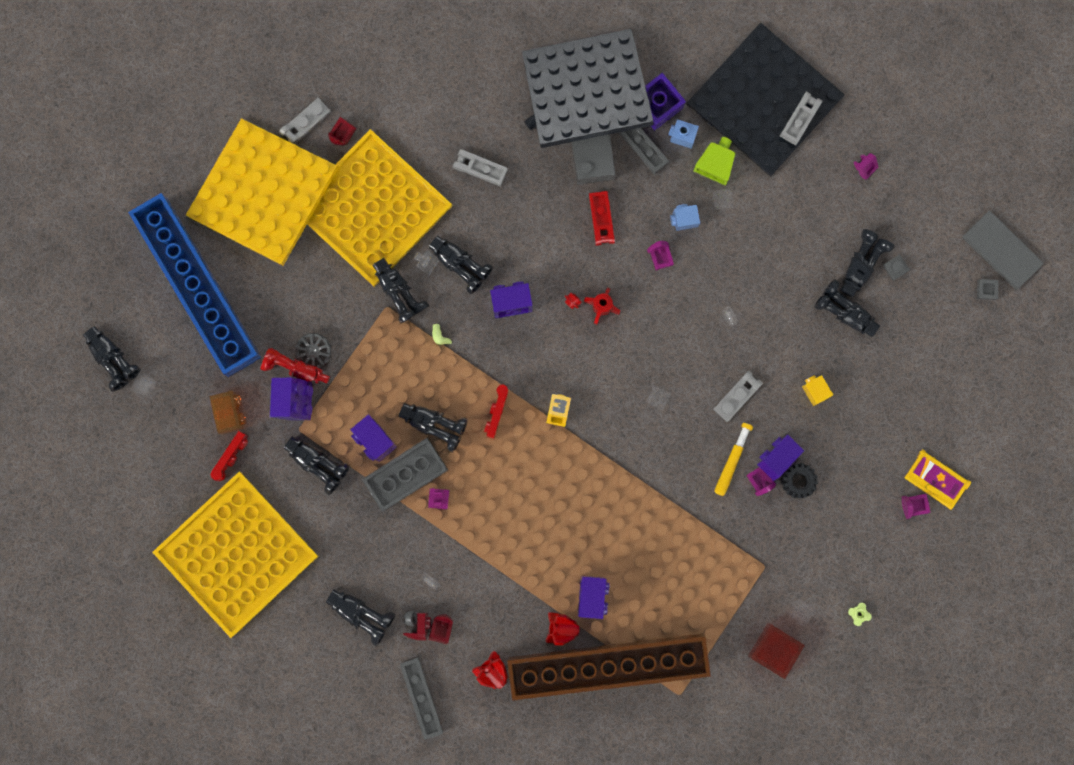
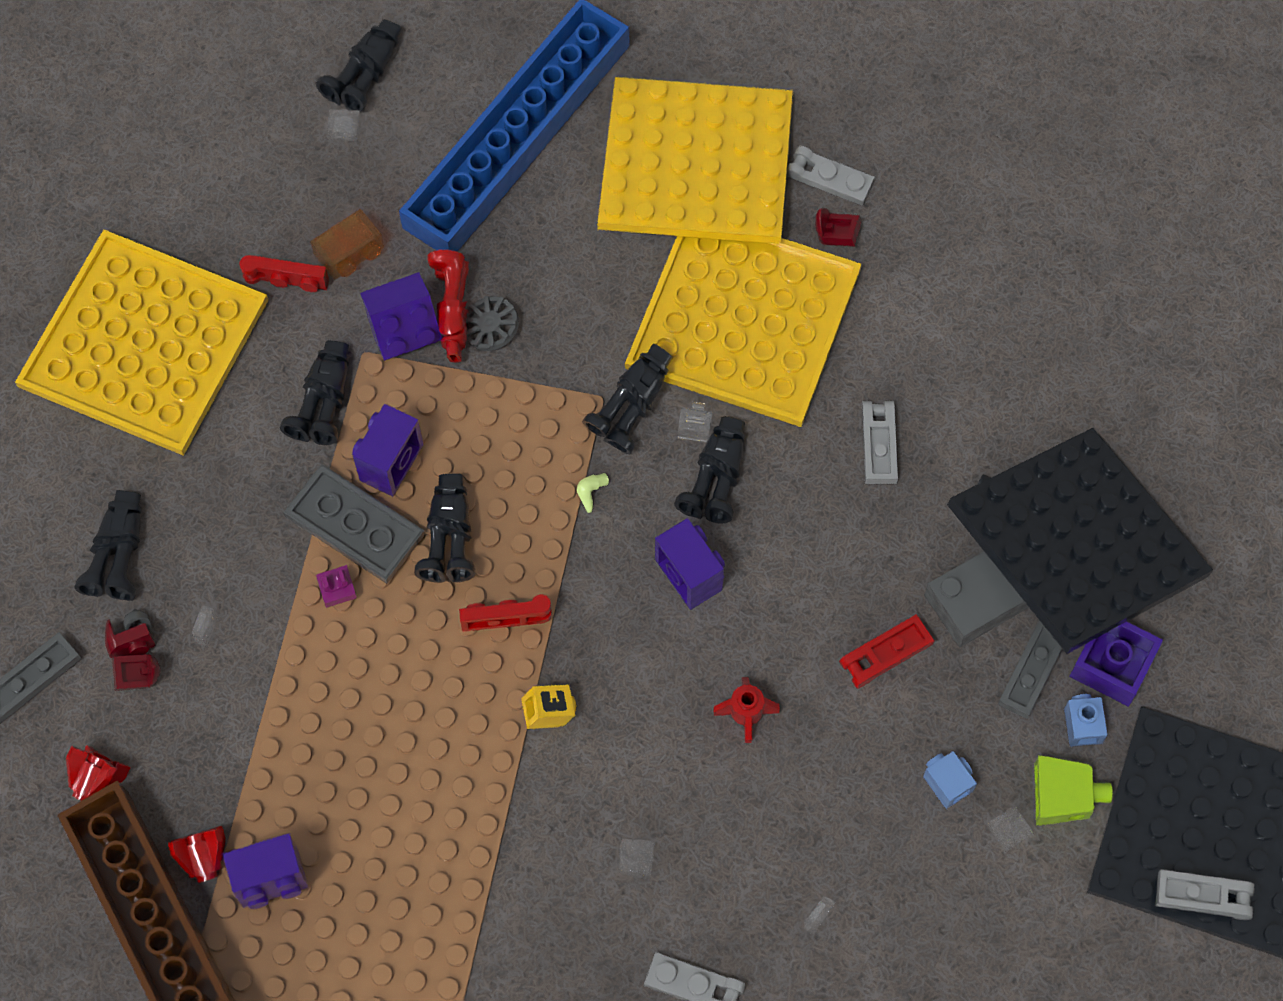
camera: 70 degrees right, 15 degrees down
(572, 300) = (734, 661): red plate -> none
(660, 255) = (871, 767): magenta tile -> none

